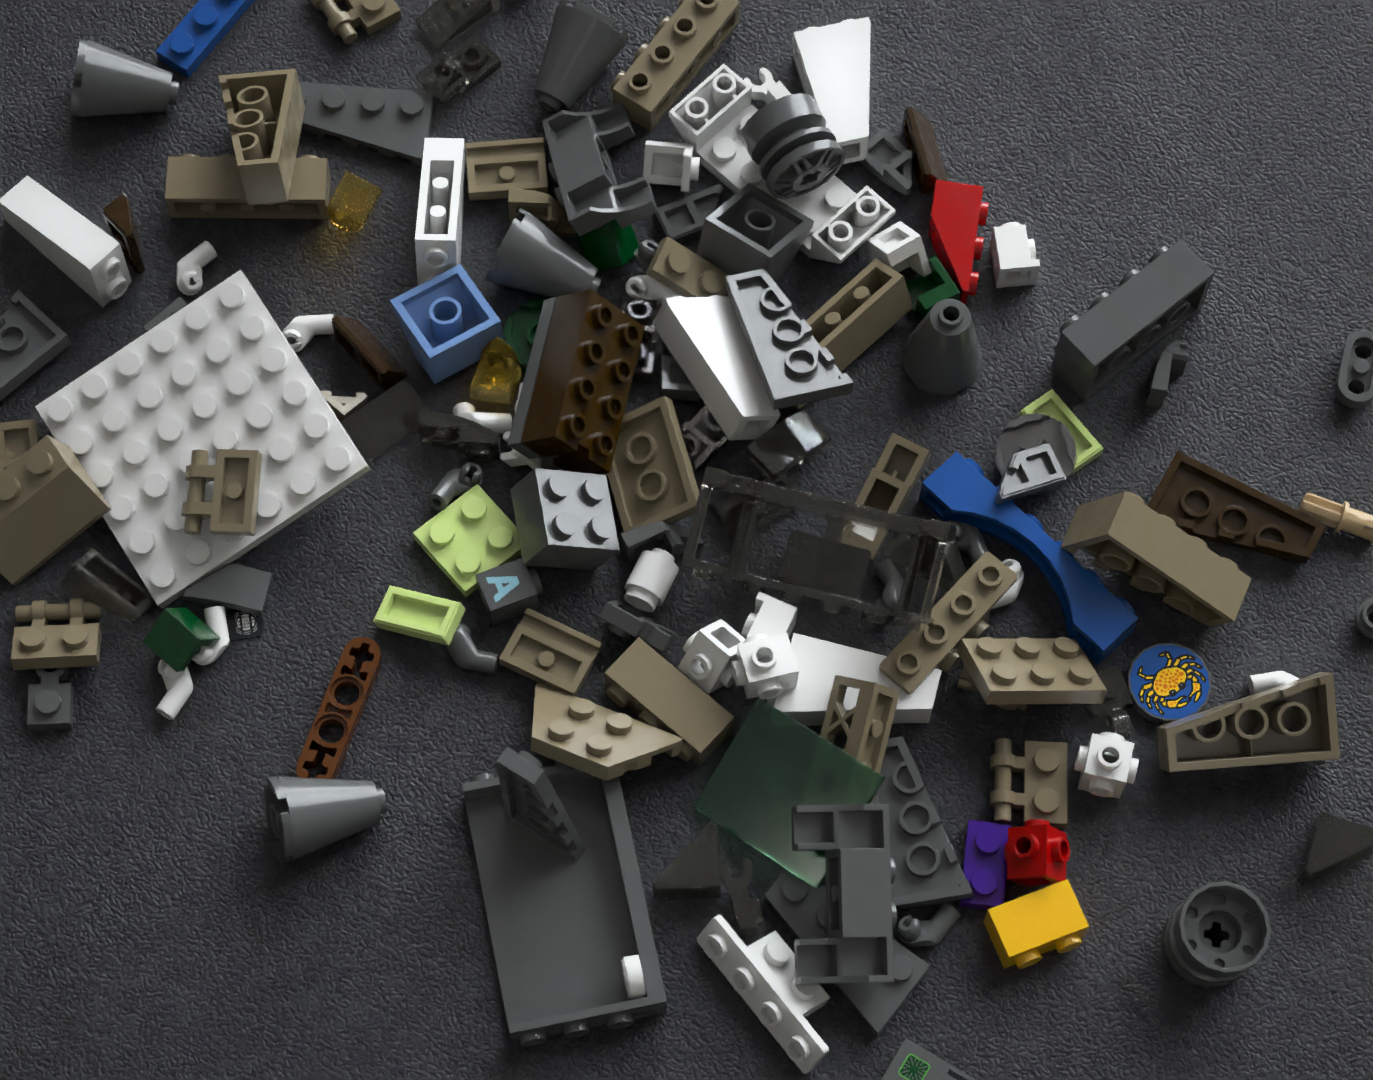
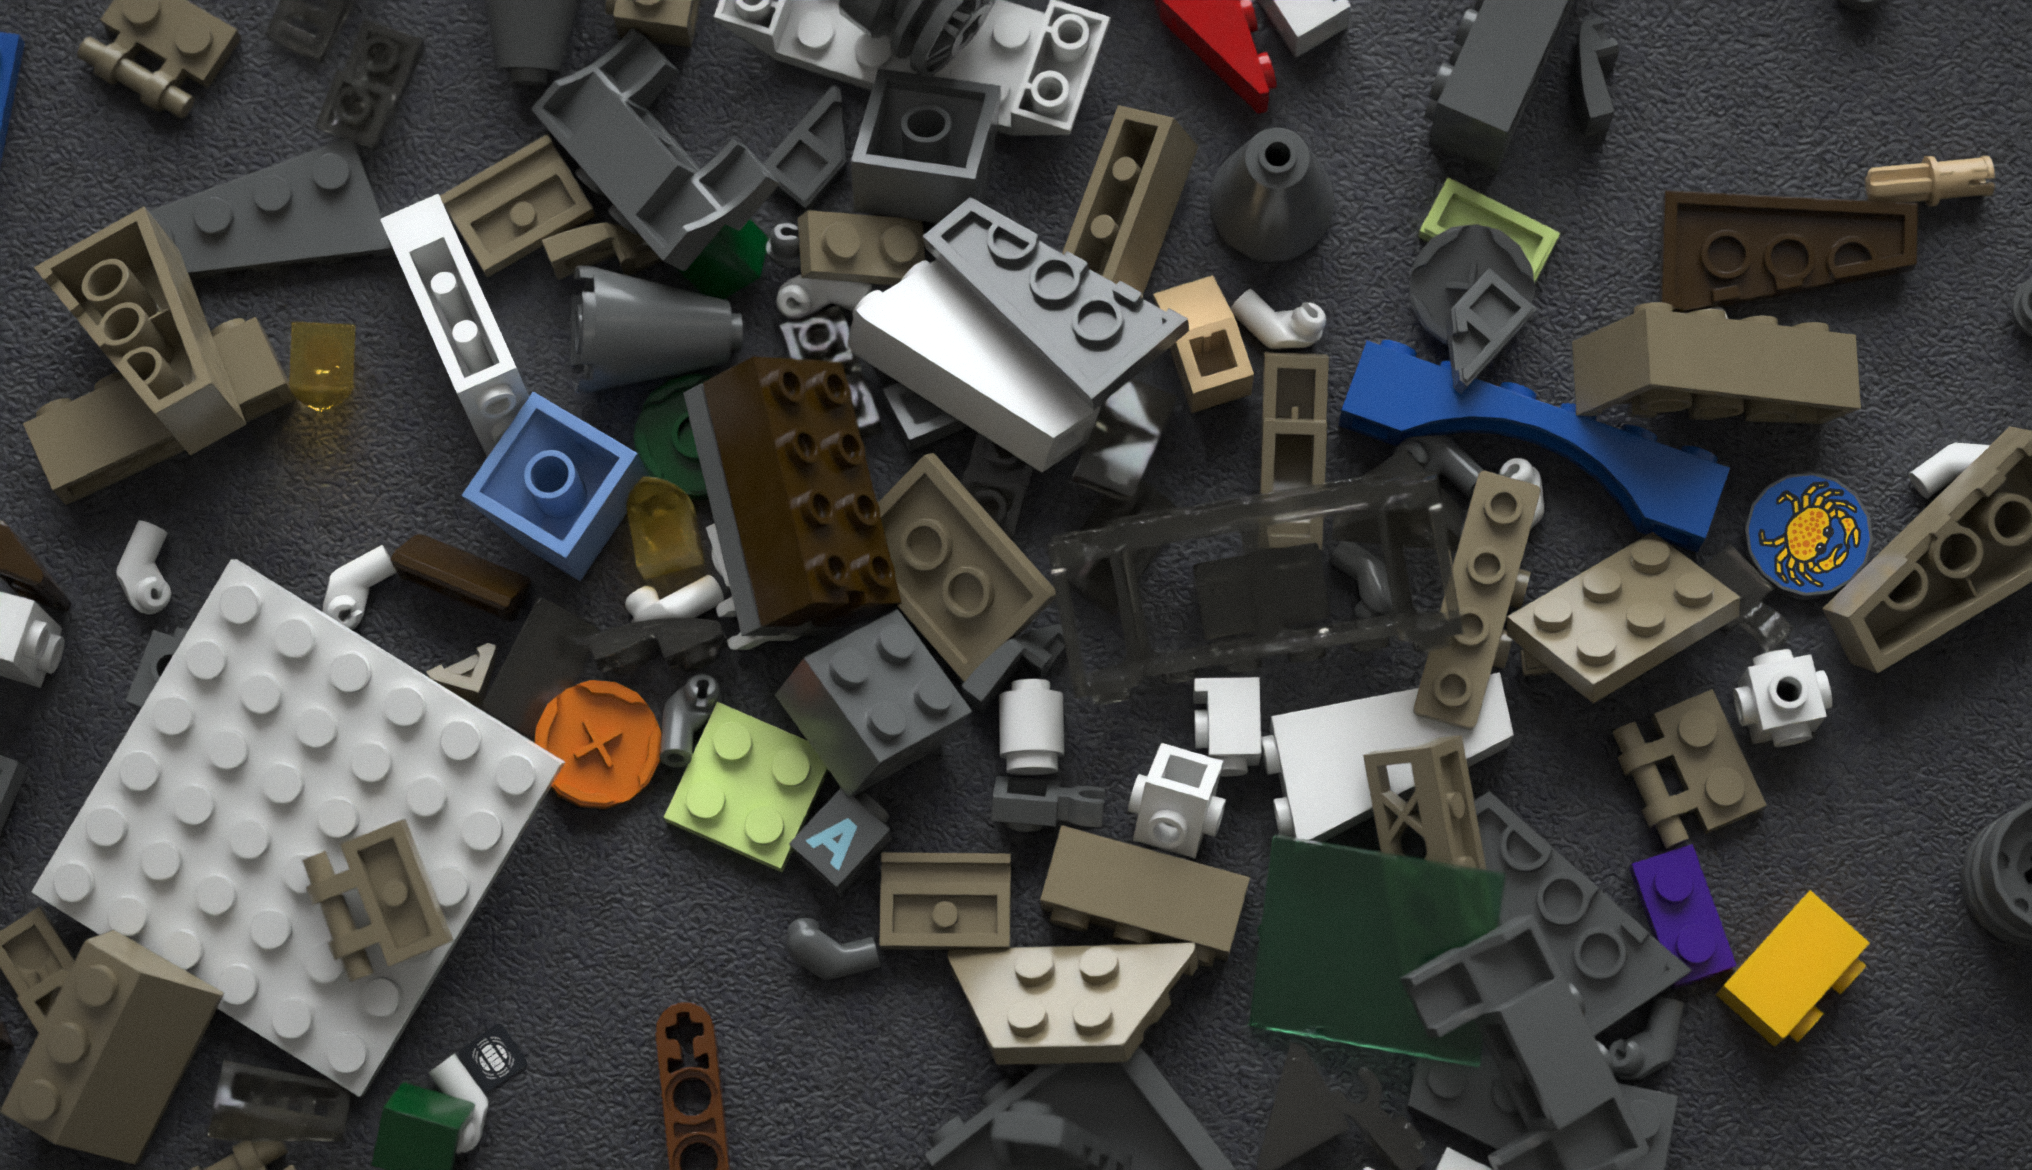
camera: 20 degrees left, 10 degrees up
(232, 587) = (452, 1021): dark grey slope -> none
(399, 477) = (605, 740): none -> orange tile
(419, 615) = (735, 935): yellowish green tile -> none
(670, 164) = (750, 90): white bracket -> none
(765, 666) = (1265, 767): white brick -> none
(861, 417) = (1212, 353): none -> tan slope
(900, 248) = (1136, 70): white panel -> none
(914, 430) = (1280, 329): none -> white arm
(931, 289) = (1213, 111): dark green panel -> none
(1036, 854) = (1749, 871): red brick -> none

